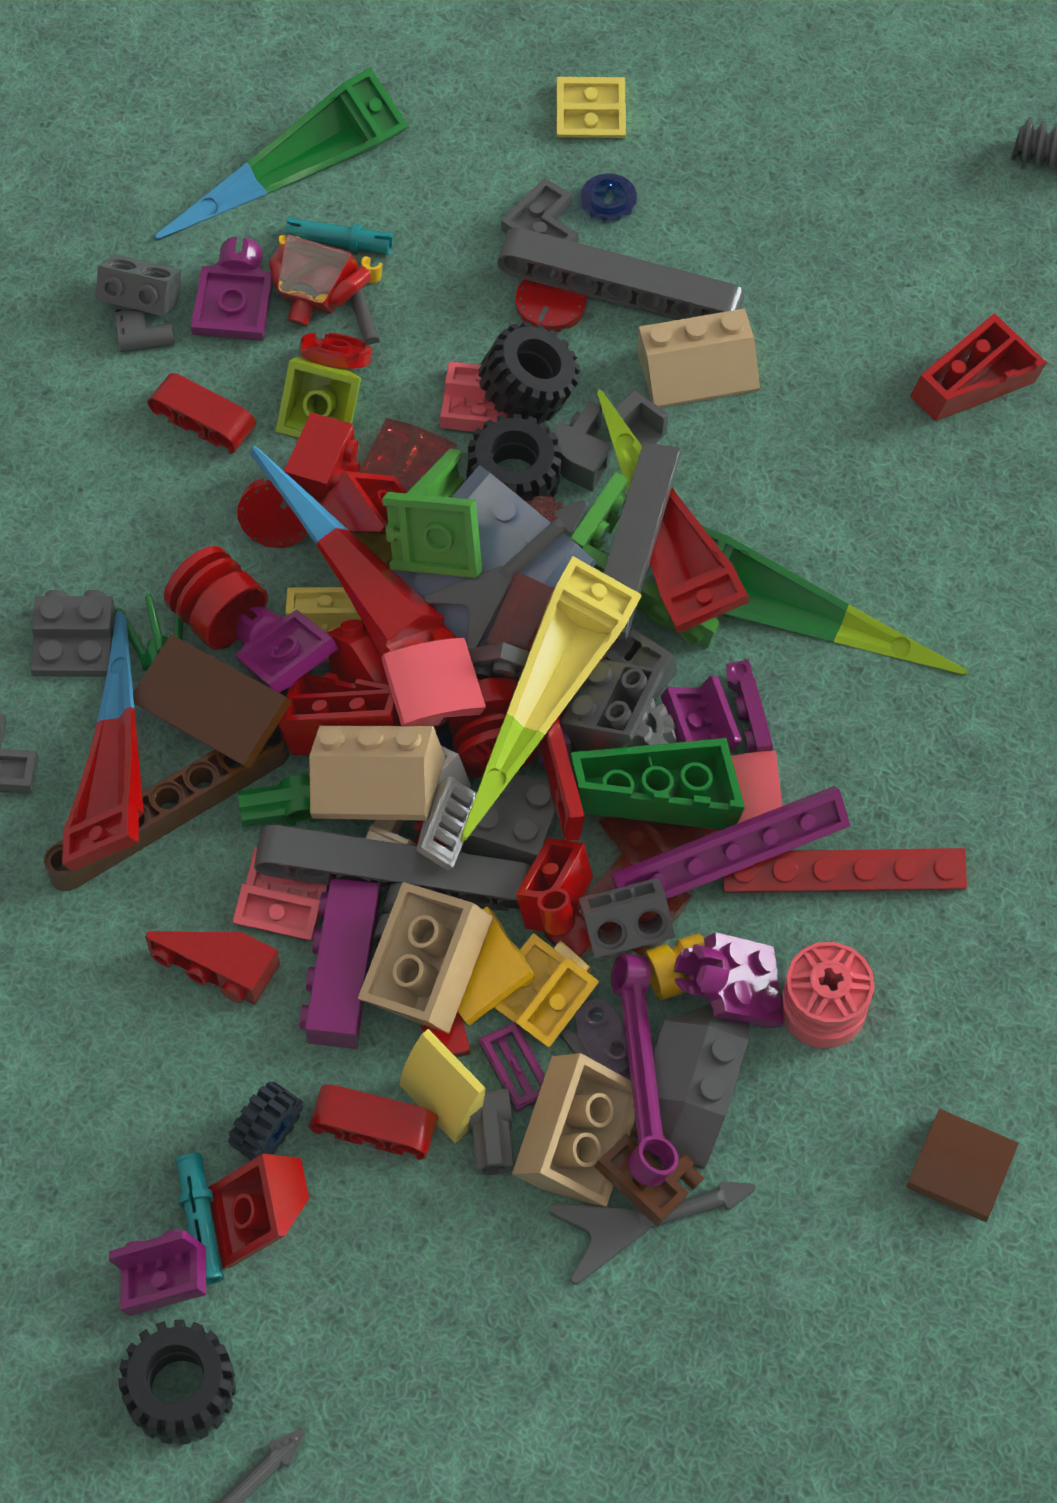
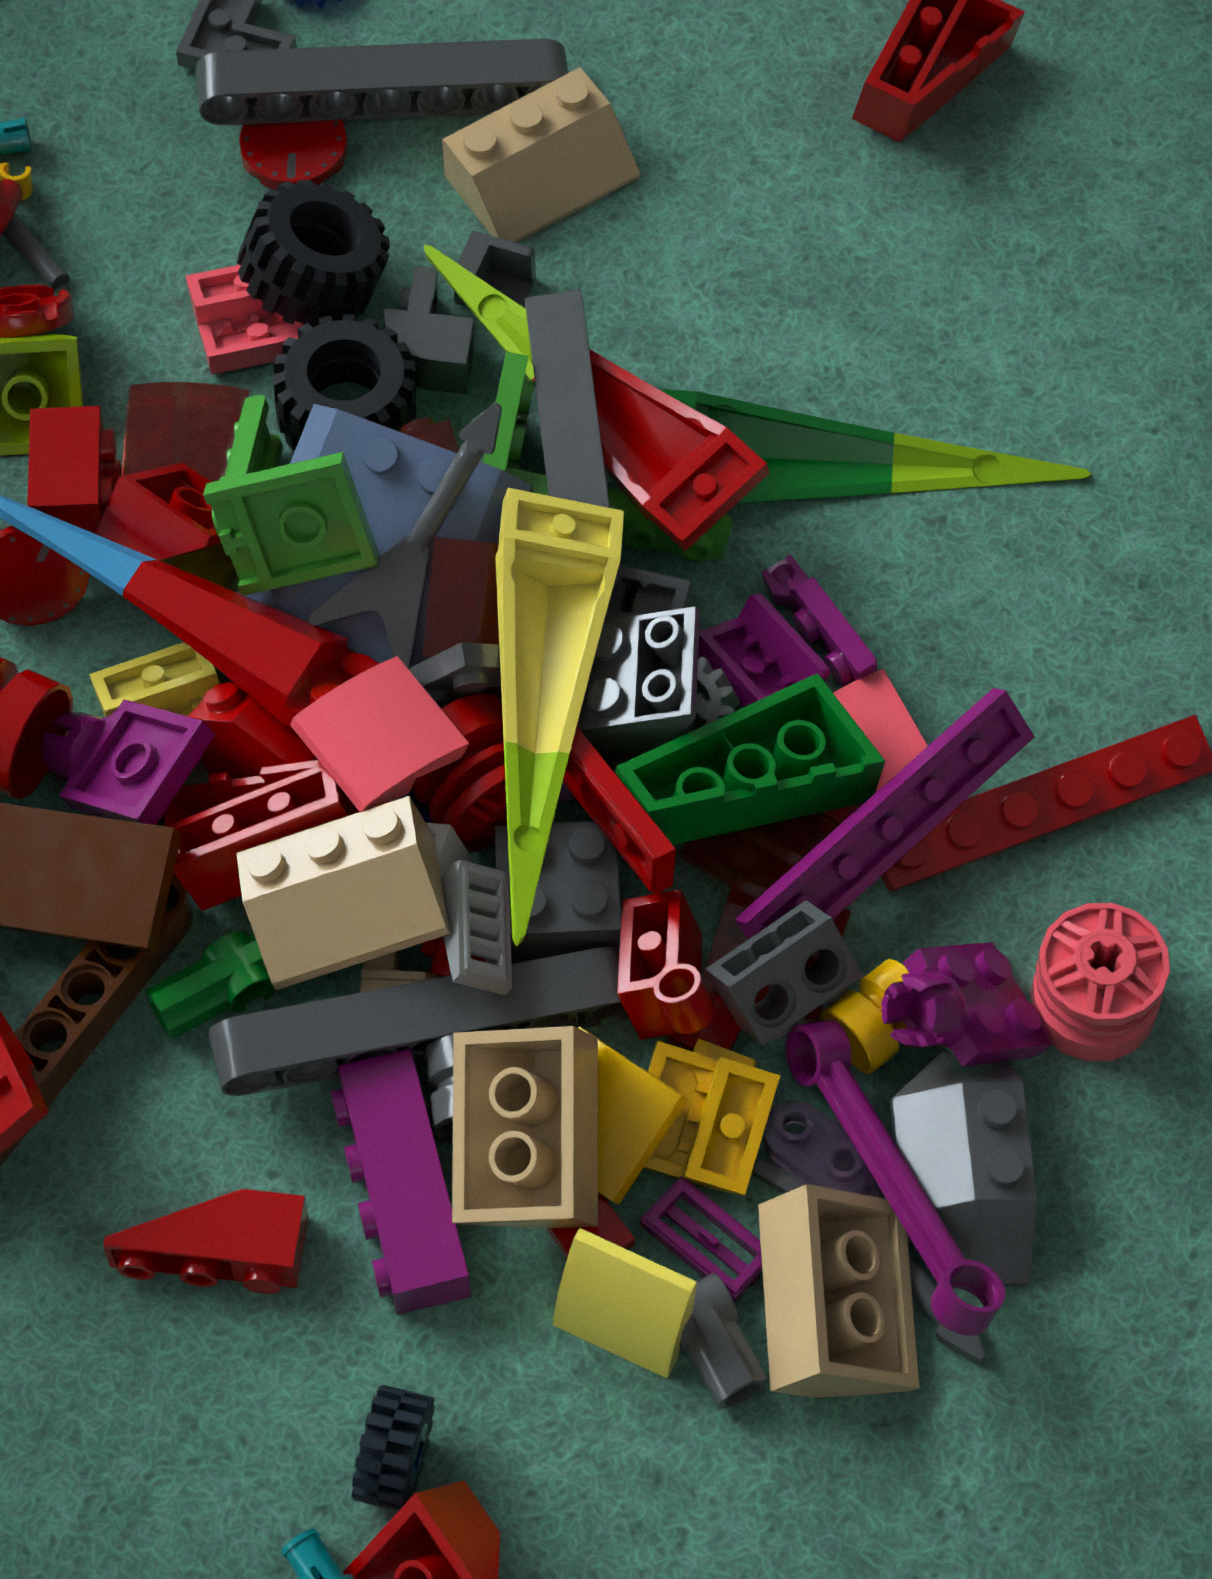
camera: 20 degrees left, 0 degrees up
(279, 904) = (271, 1130): coral slope -> none
(374, 1120) = (542, 1387): red beam -> none
(617, 1228) = (945, 1412): dark grey piece -> none
(652, 1201) = (985, 1355): reddish brown plate -> none

